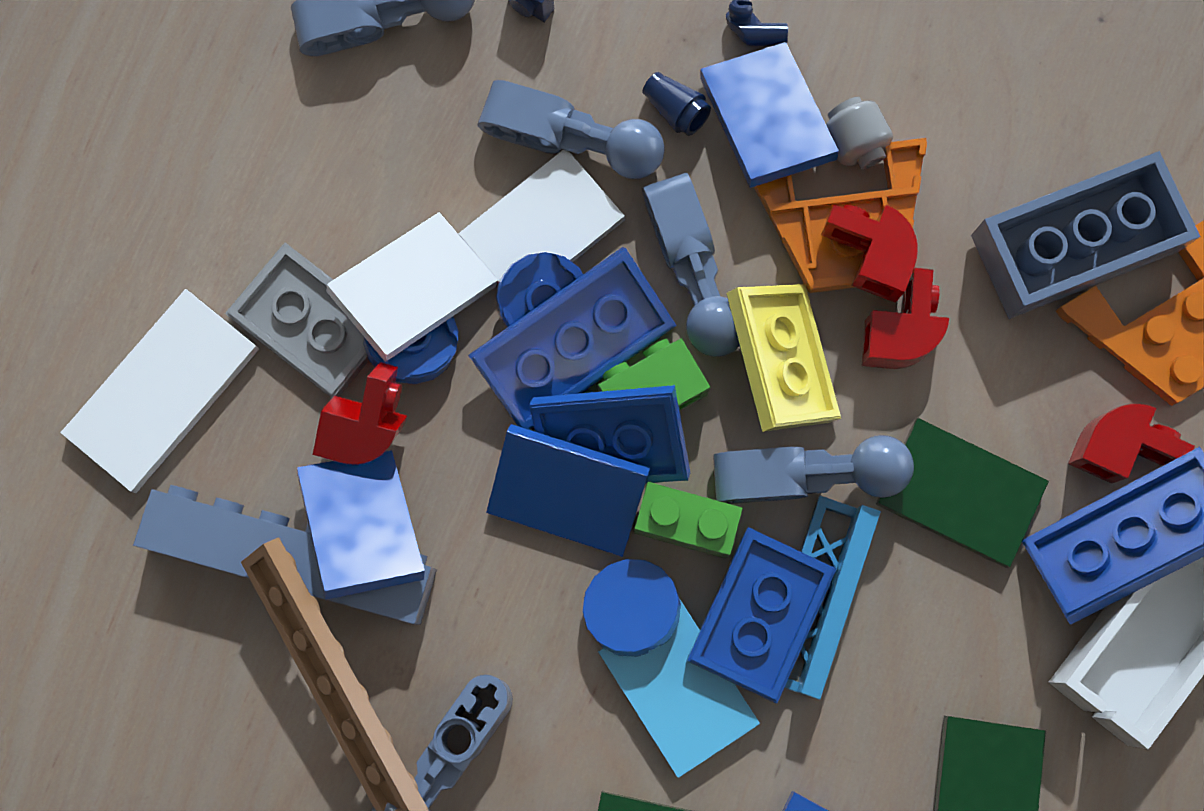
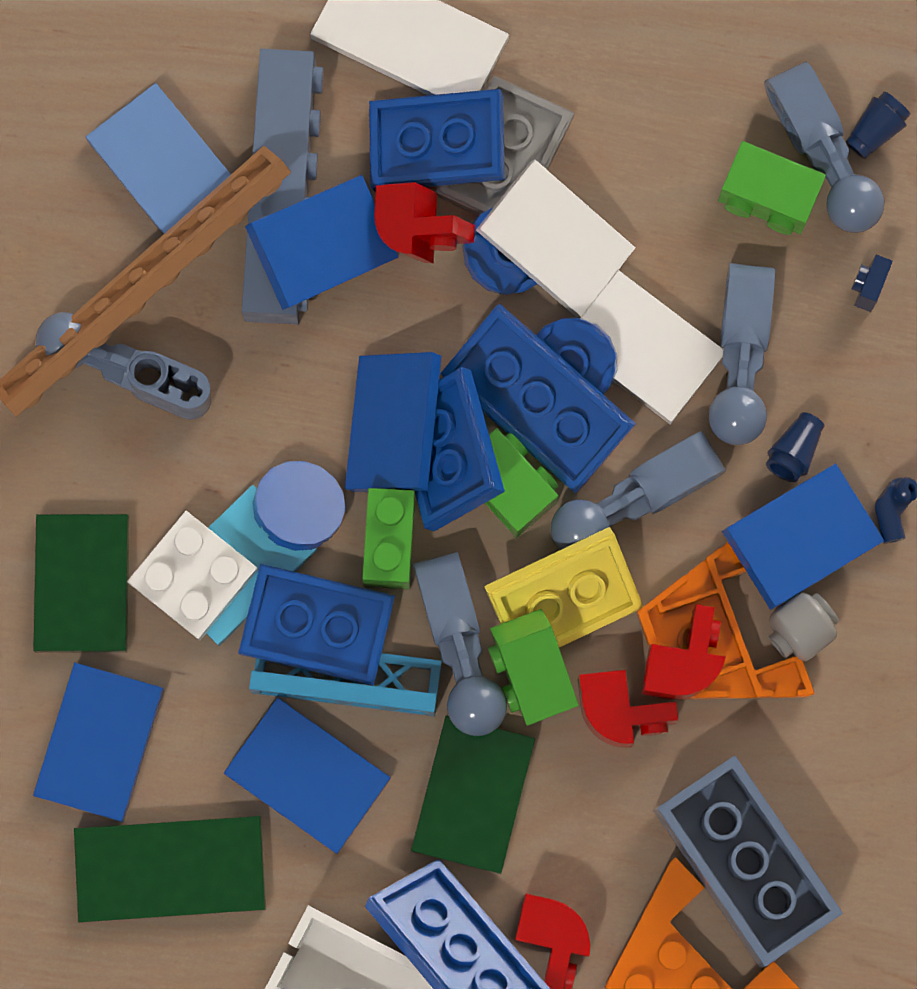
camera: 75 degrees right, 0 degrees up
(223, 680) = (158, 157): none -> medium blue tile
(278, 383) = (437, 139): none -> blue tile
(411, 67) = (771, 189): none -> bright green brick
(684, 735) = (192, 575): none -> white plate
(851, 401) = (533, 667): none -> bright green brick
(912, 658) = (307, 775): none -> blue tile

